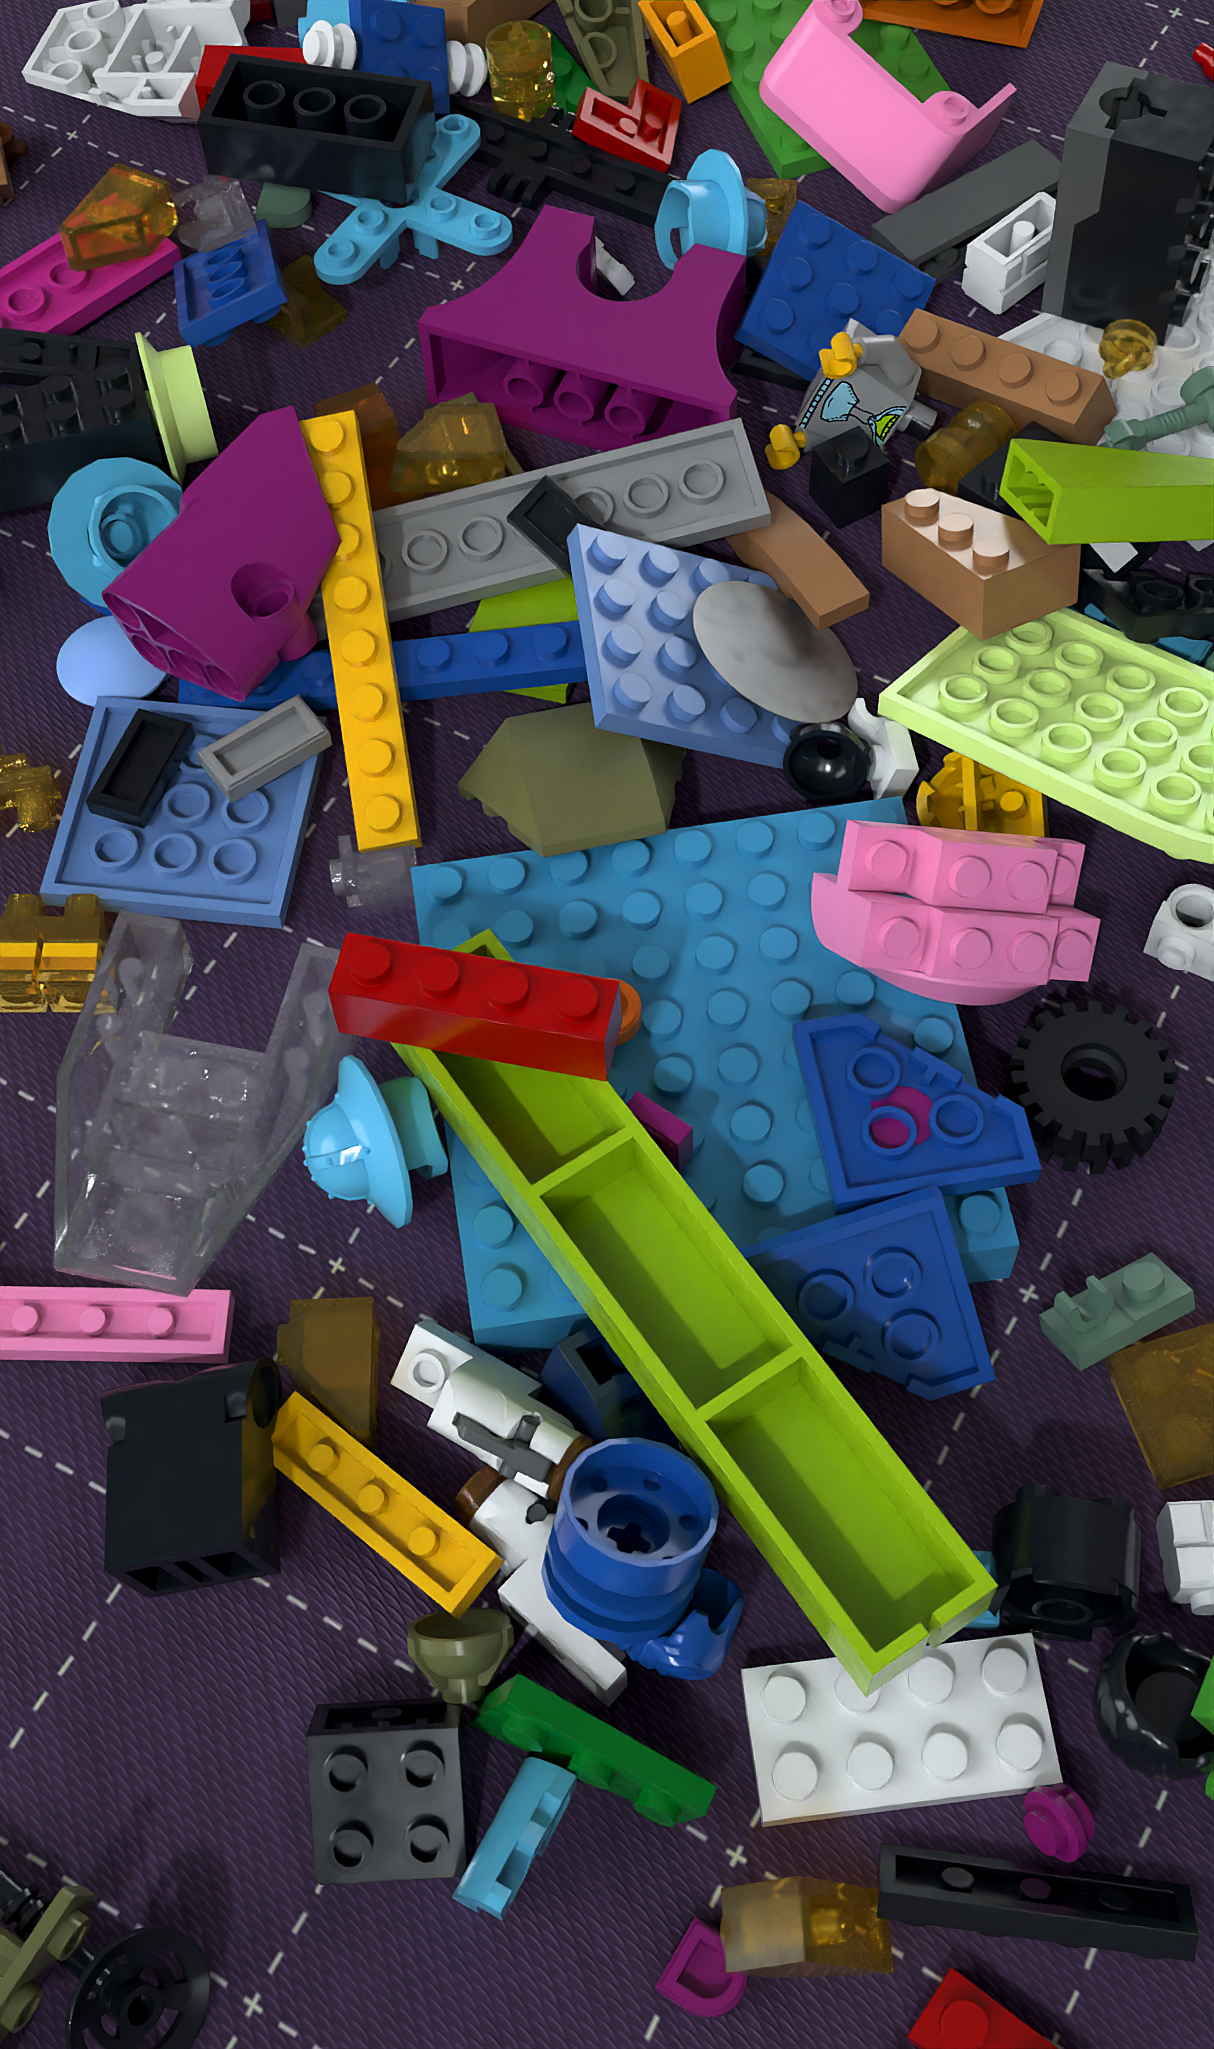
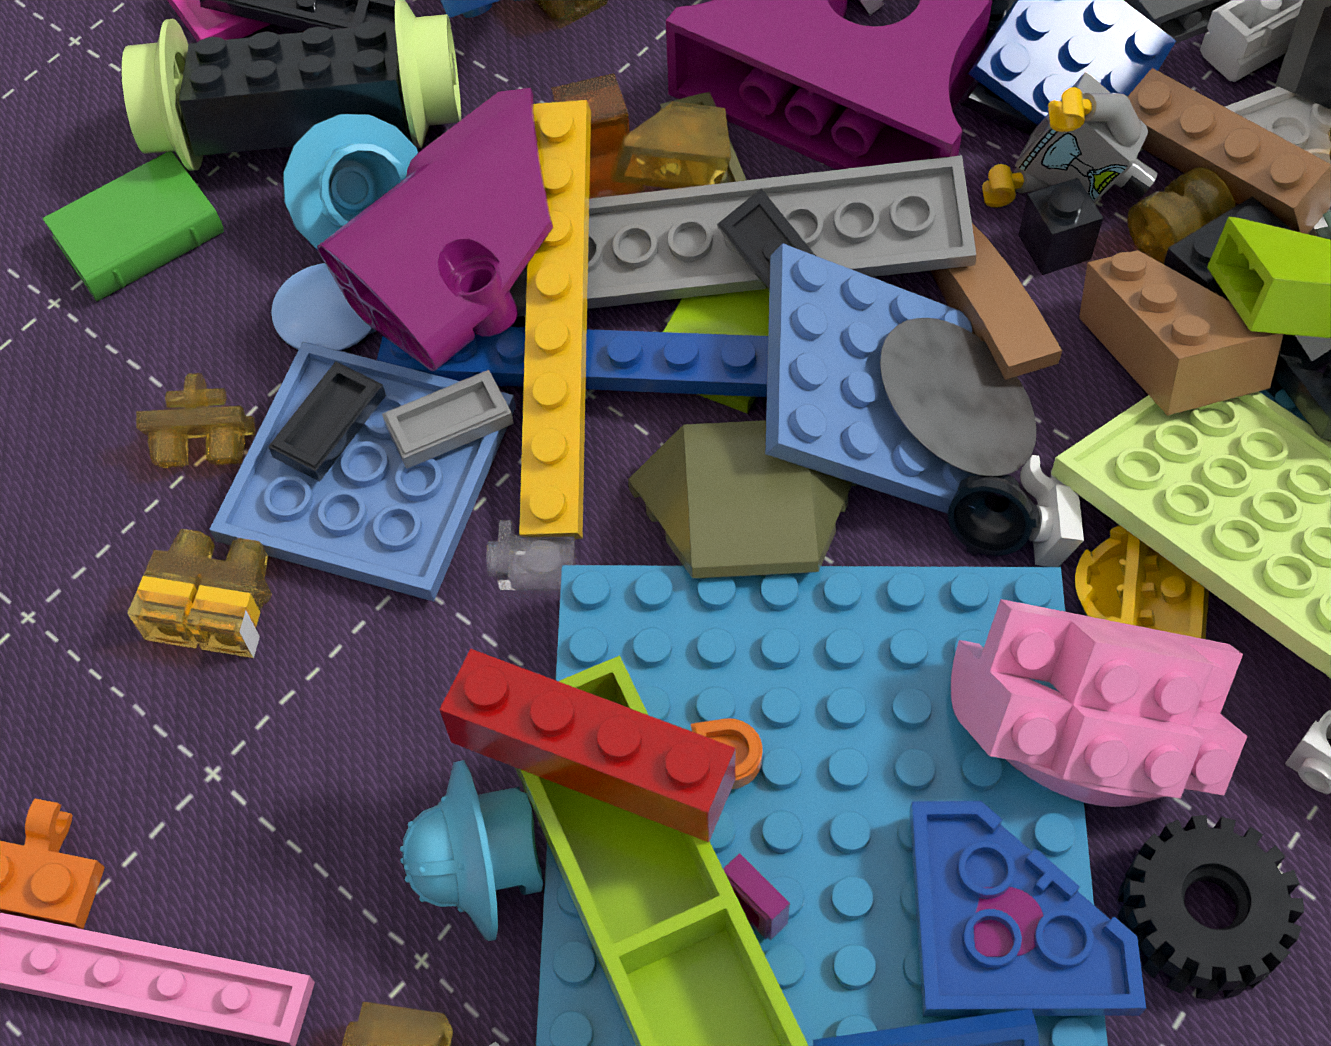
camera: 10 degrees right, 0 degrees up
(171, 1133) = (282, 804): clear wedge -> none

